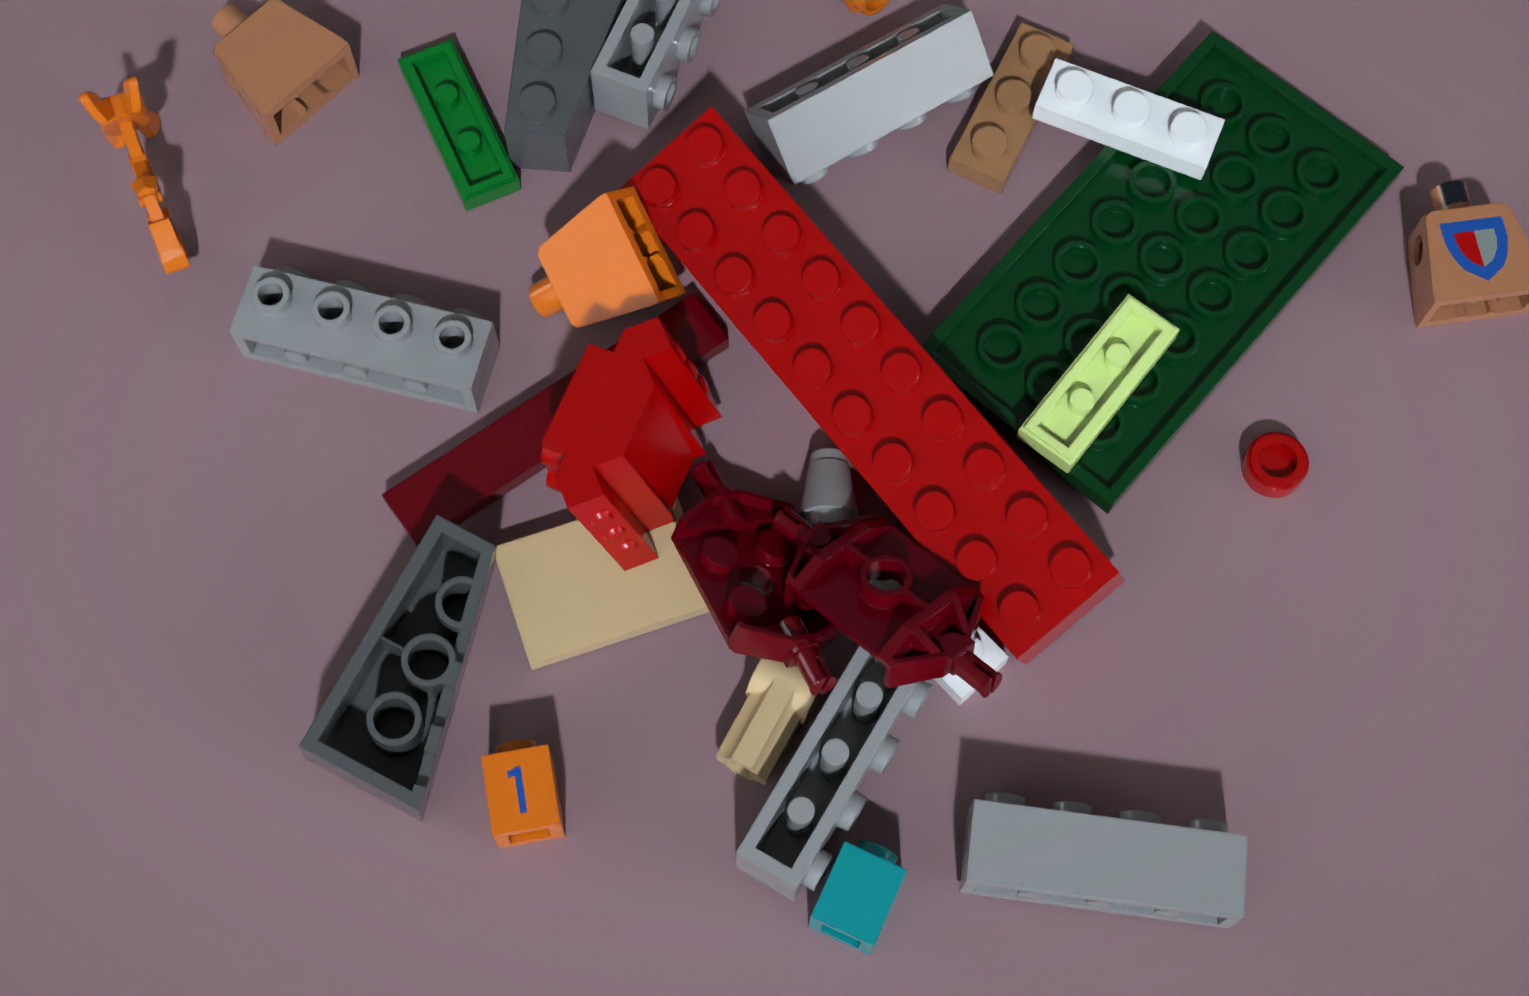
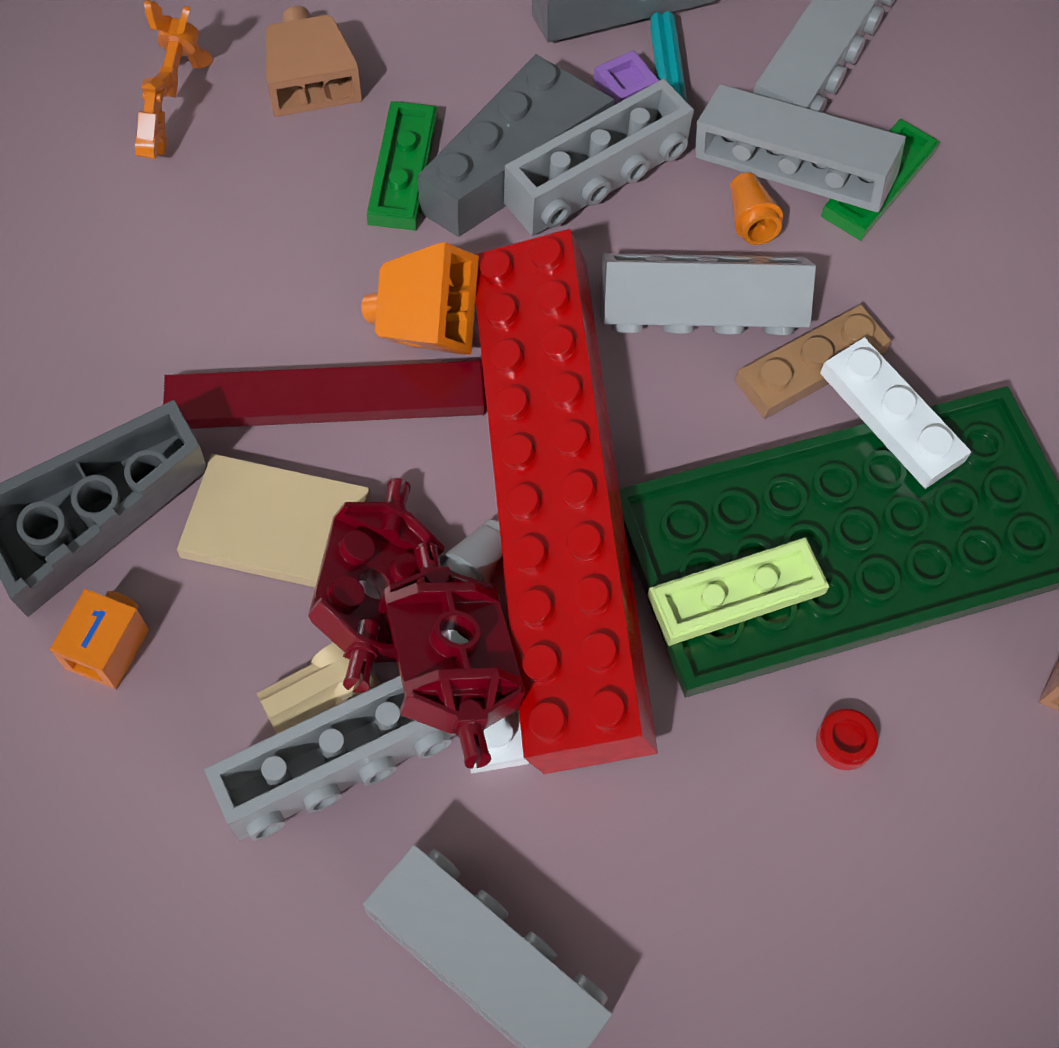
camera: 30 degrees right, 5 degrees down
(366, 337) = (233, 266): light grey brick -> none
(628, 438) = (345, 425): red slope -> none
(858, 895) = (284, 866): teal brick -> none

